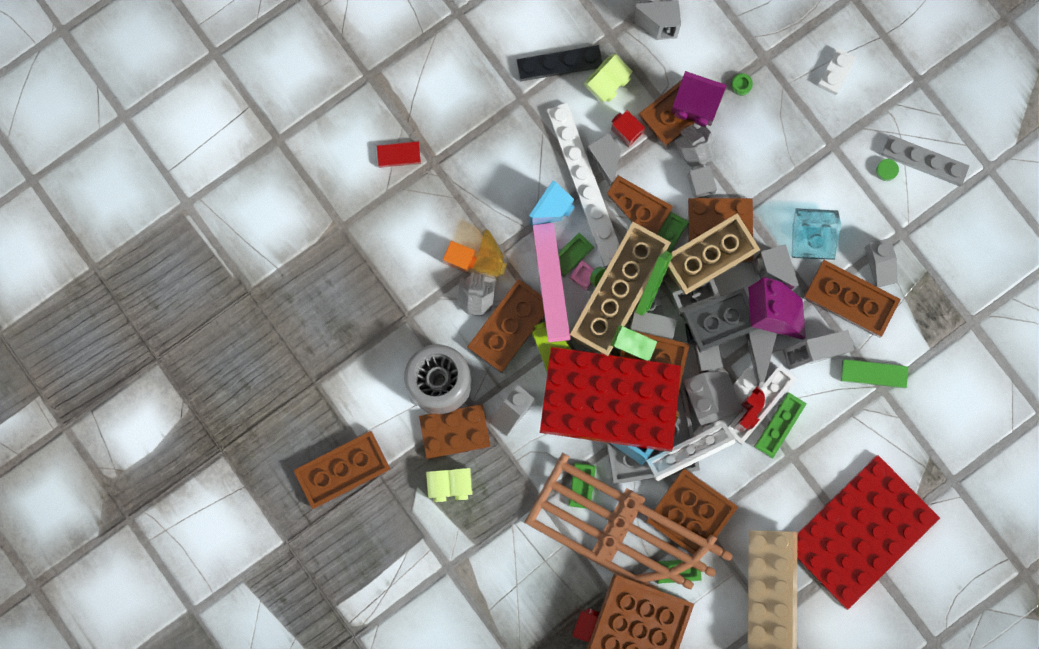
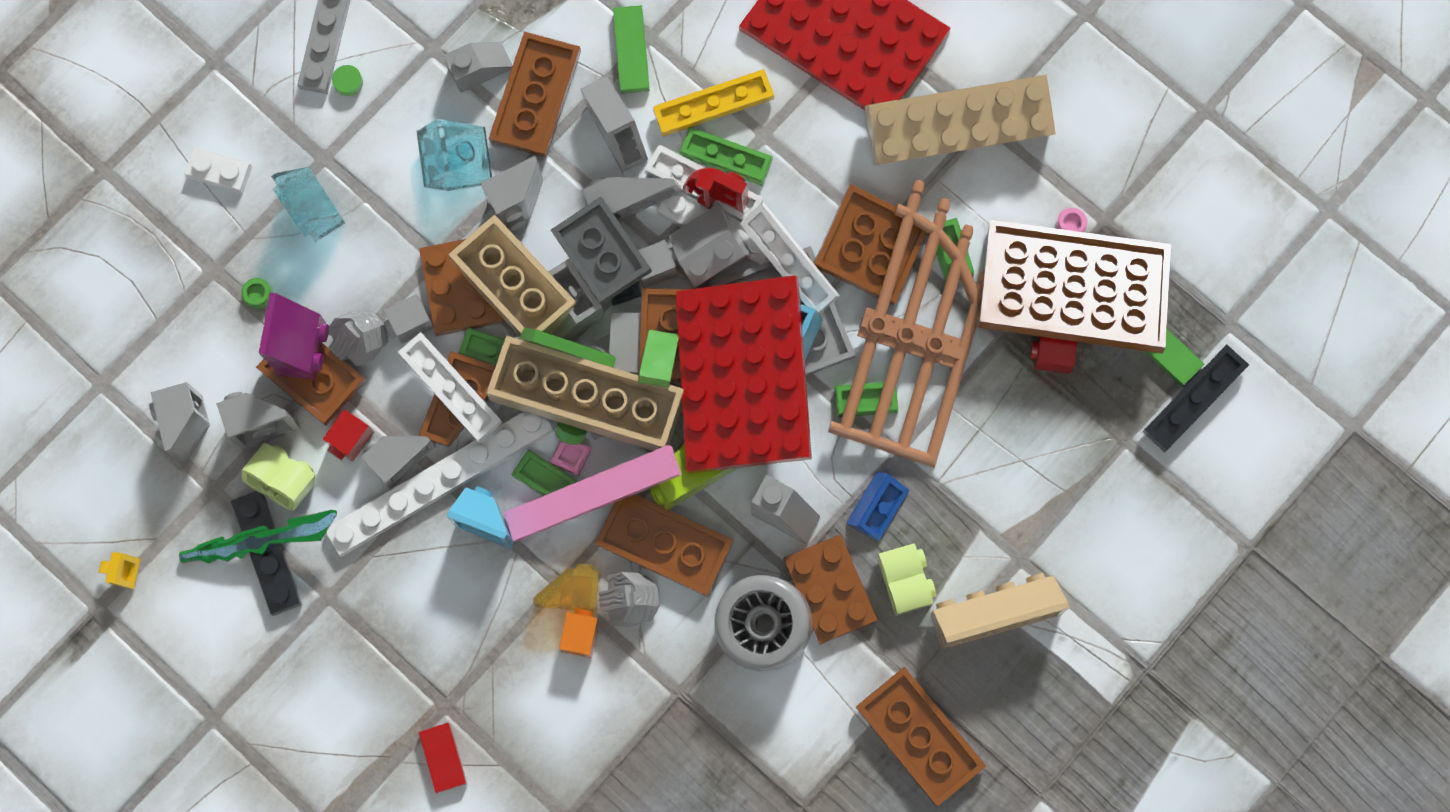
camera: 100 degrees left, 5 degrees down
(412, 541) = (999, 611): none -> tan slope
(505, 477) = (878, 506): none -> blue slope
(567, 57) = (256, 540): none -> green sword
(645, 200) = (450, 387): none -> white plate
(649, 64) = (253, 420): none -> light grey slope
(776, 308) = (571, 184): magenta slope -> none
(799, 126) = (307, 202): none -> clear light blue slope
(821, 424) = (713, 102): none -> yellow plate

